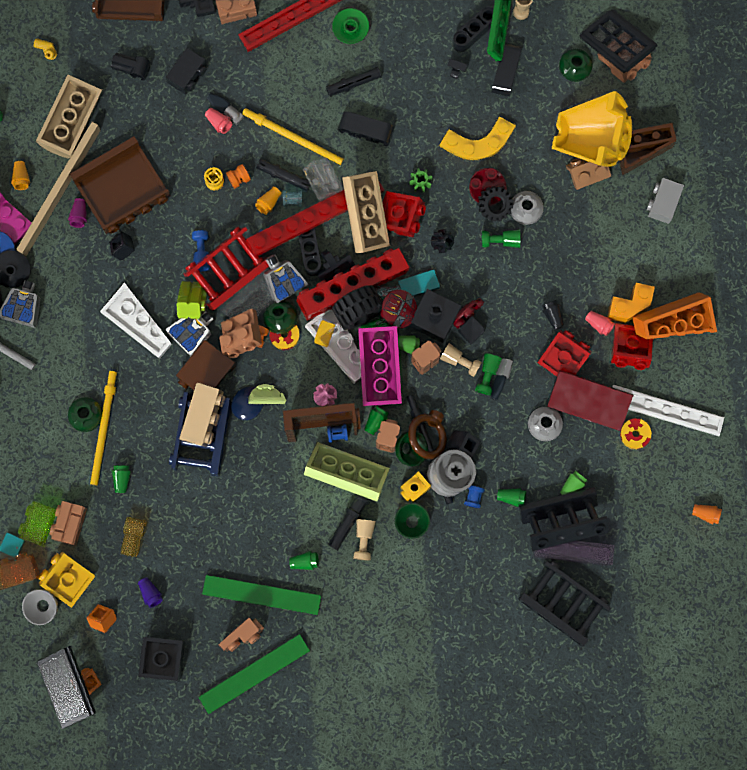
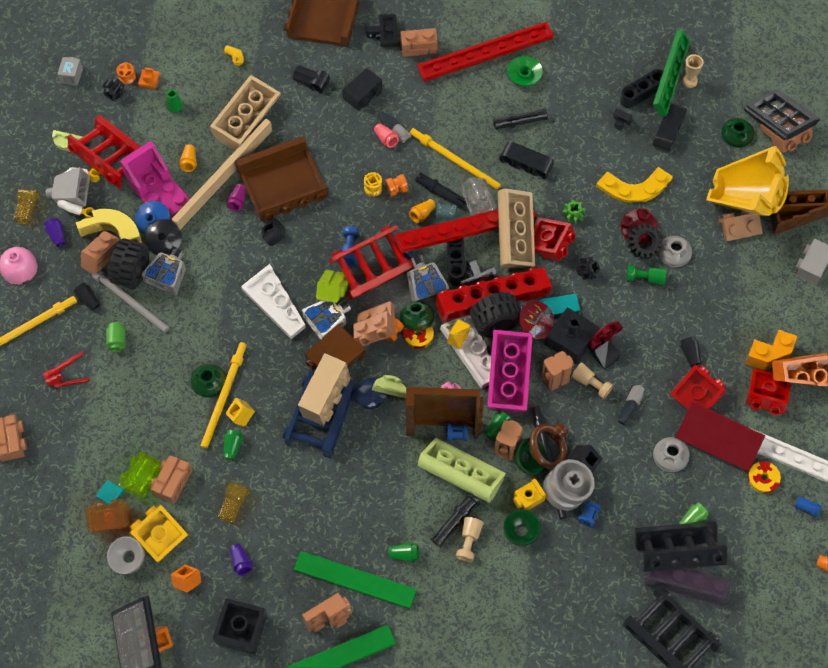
camera: 10 degrees right, 15 degrees down
(123, 443) = (240, 412): none -> yellow slope
(408, 343) = (538, 356): bright green cone -> none
(489, 367) = (620, 392): green piece -> none
(512, 496) = (628, 519): green cone -> none
(600, 323) = (738, 366): coral cone -> none
(679, 457) = (808, 506): none -> blue pin

